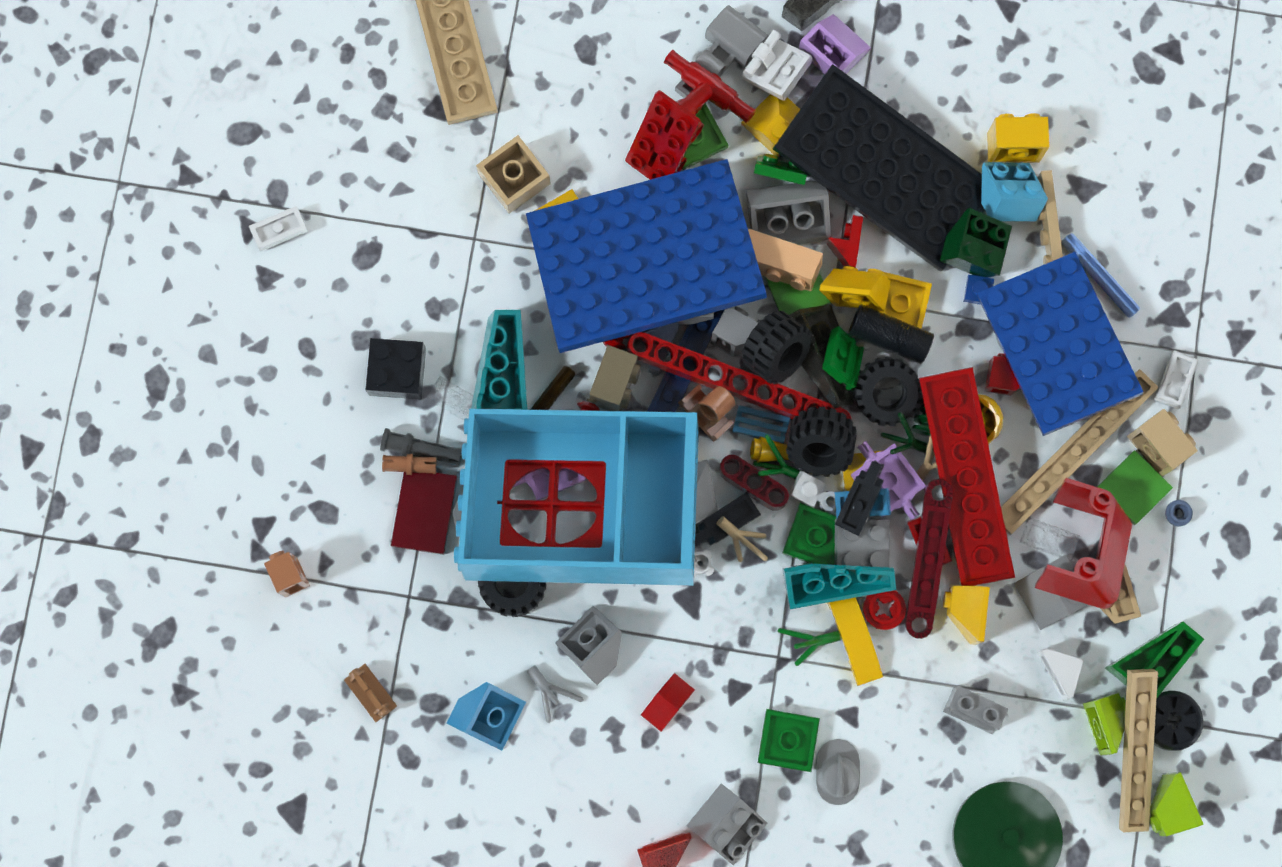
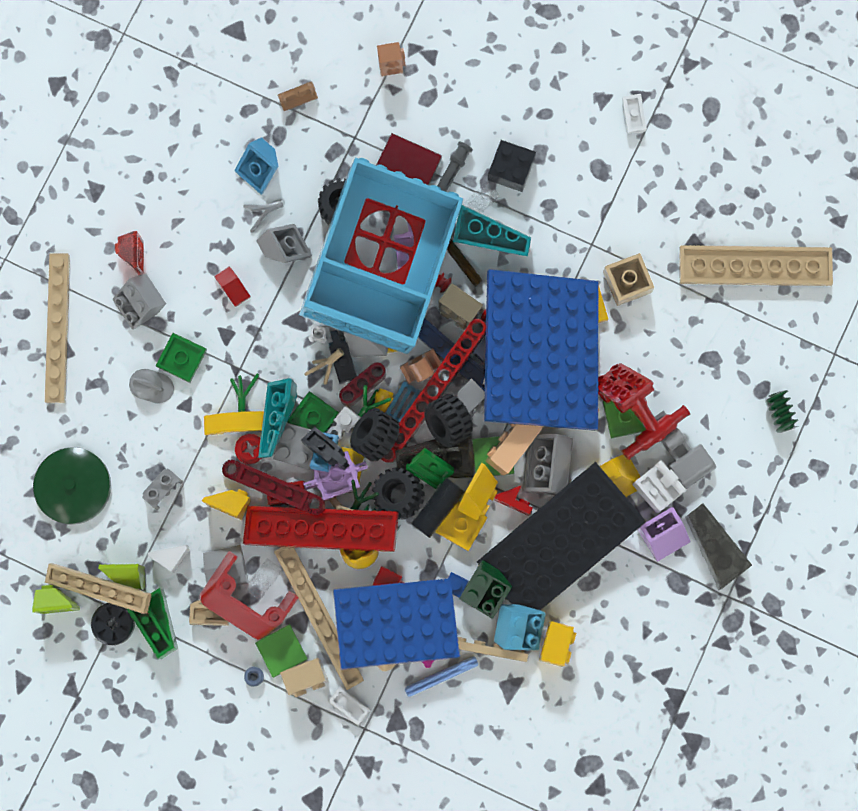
camera: 110 degrees right, 0 degrees up
(409, 464) = (442, 157): nougat pin -> none
(772, 167) = (583, 459): green plate -> none

